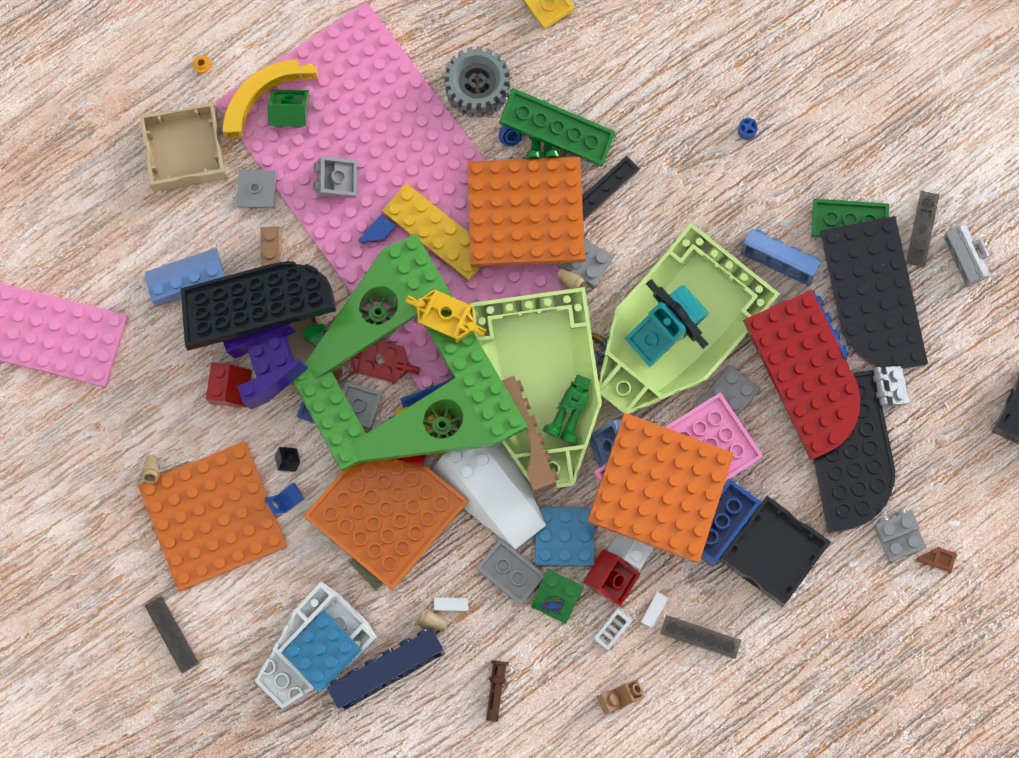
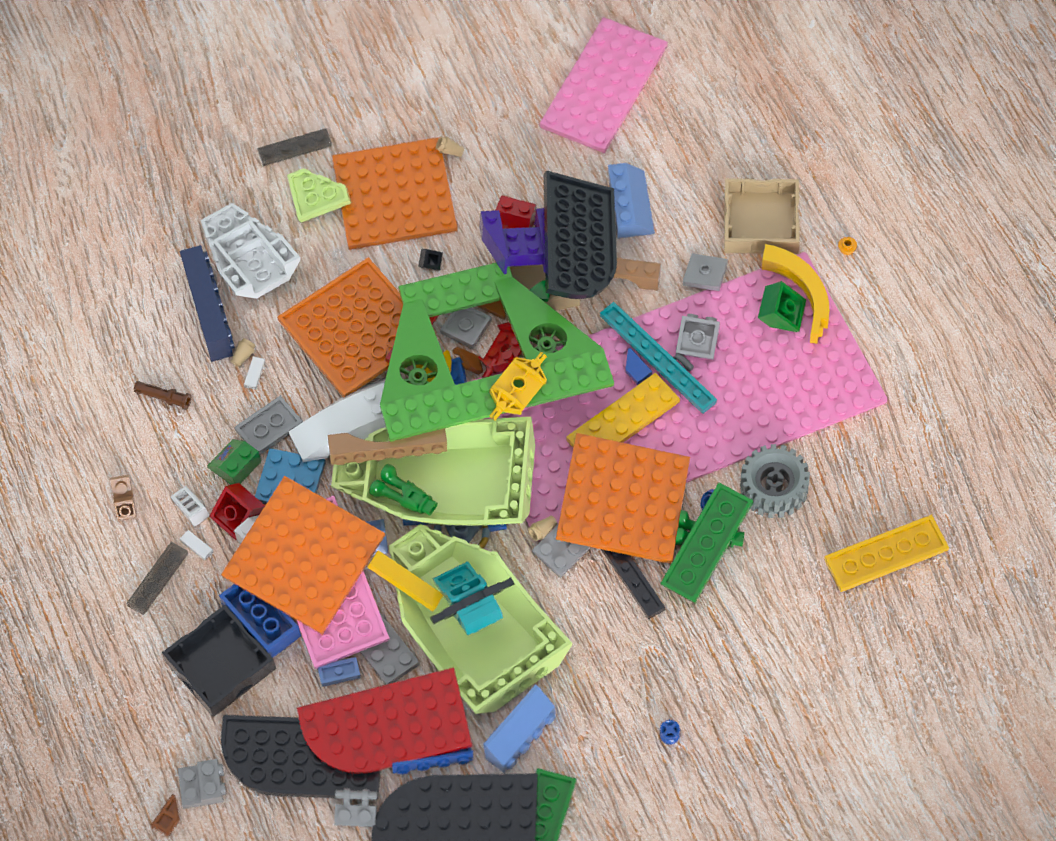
camera: 100 degrees right, 15 degrees down
(231, 593) = (316, 194): none -> yellowish green plate
(285, 500) = (392, 252): blue bracket -> none
(322, 651) = (237, 250): dark azure plate -> none
(364, 212) = (658, 357): none -> teal plate
(367, 182) = (685, 362): none -> dark grey piece
(401, 389) = (470, 360): none -> dark orange tile
(663, 386) = (405, 580): none -> yellow tile
(759, 435) = (339, 672): none -> medium blue plate

